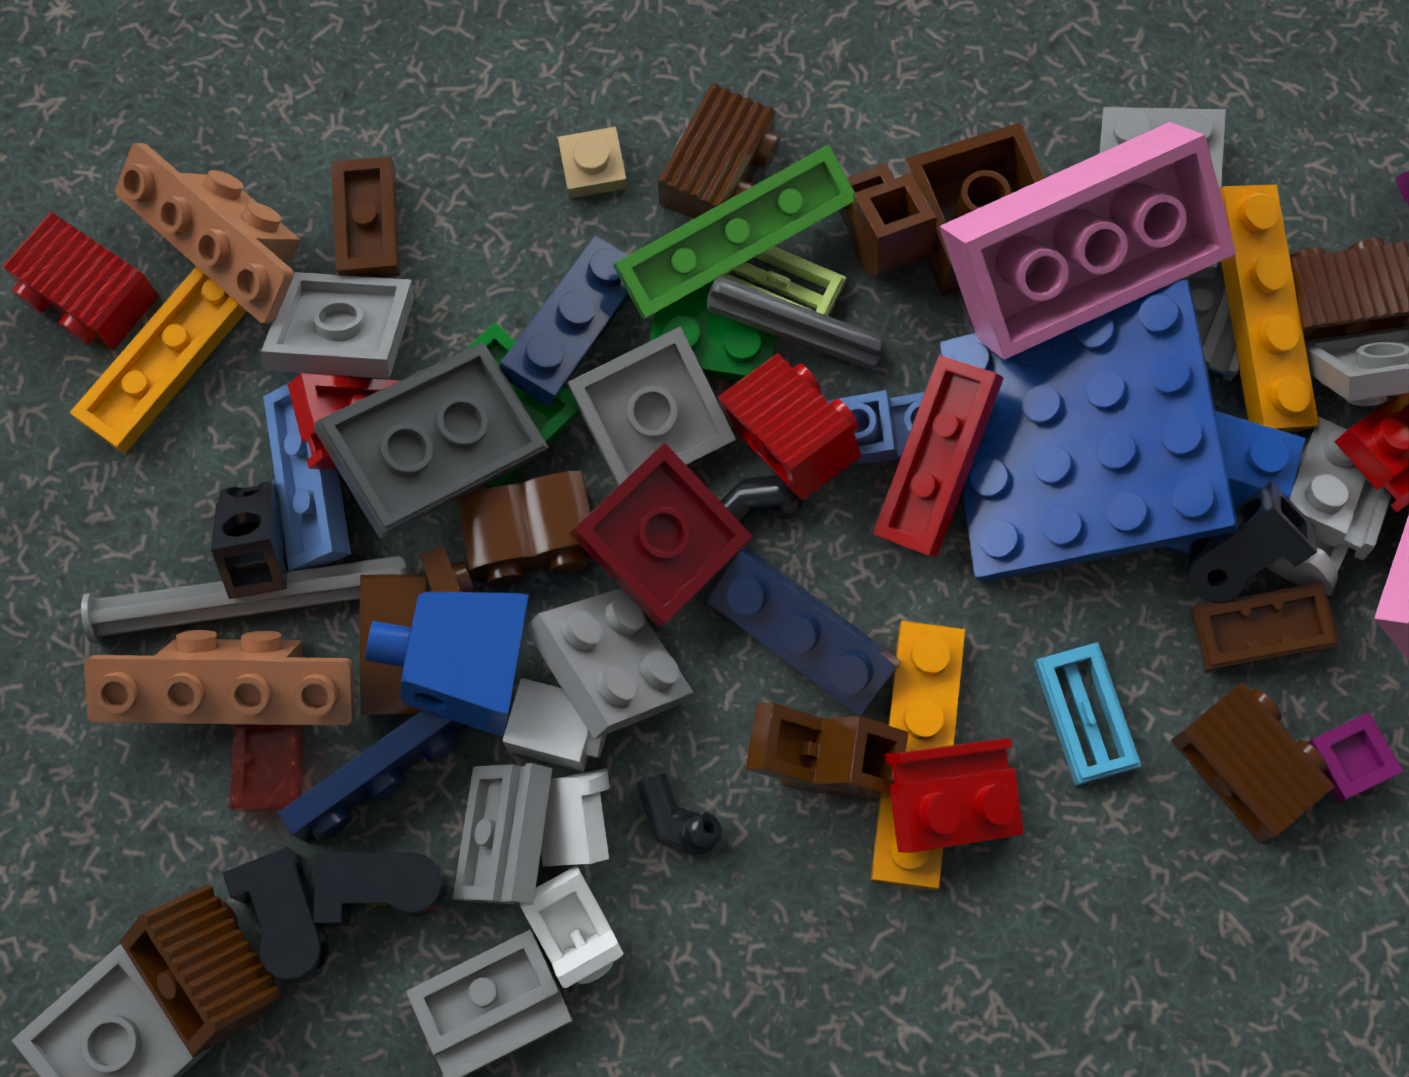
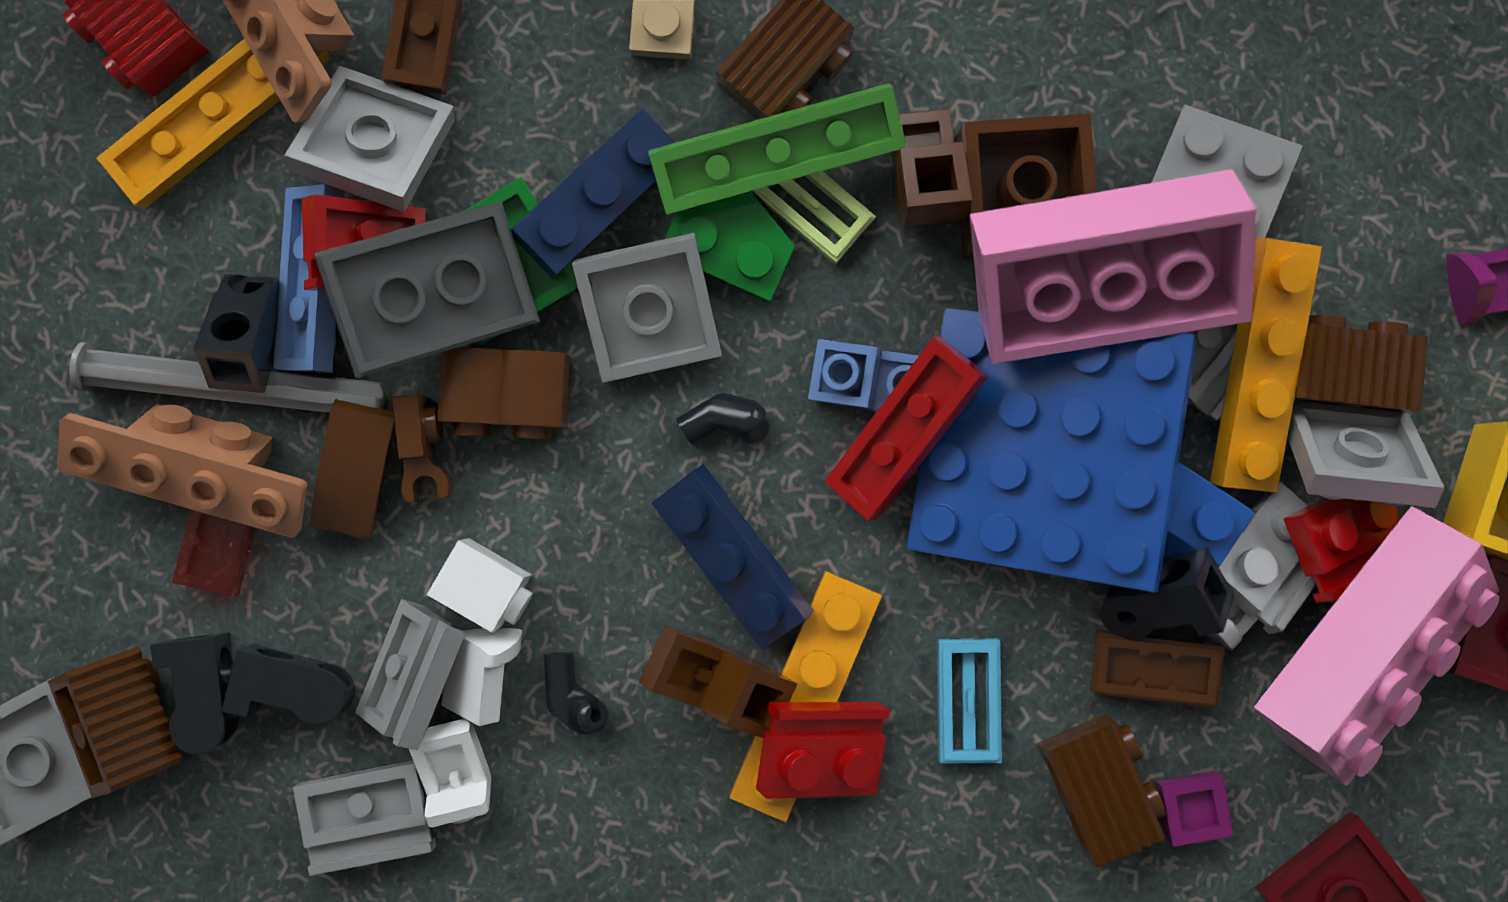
camera: 10 degrees right, 15 degrees up
(371, 774) = (310, 585): dark blue plate -> none
(456, 655) = (400, 508): blue torso -> none
(608, 661) = (543, 544): light grey plate -> none
(661, 535) = (622, 438): dark red plate -> none
(792, 425) = (774, 360): red brick -> none
(794, 323) = (809, 254): dark grey axle -> none

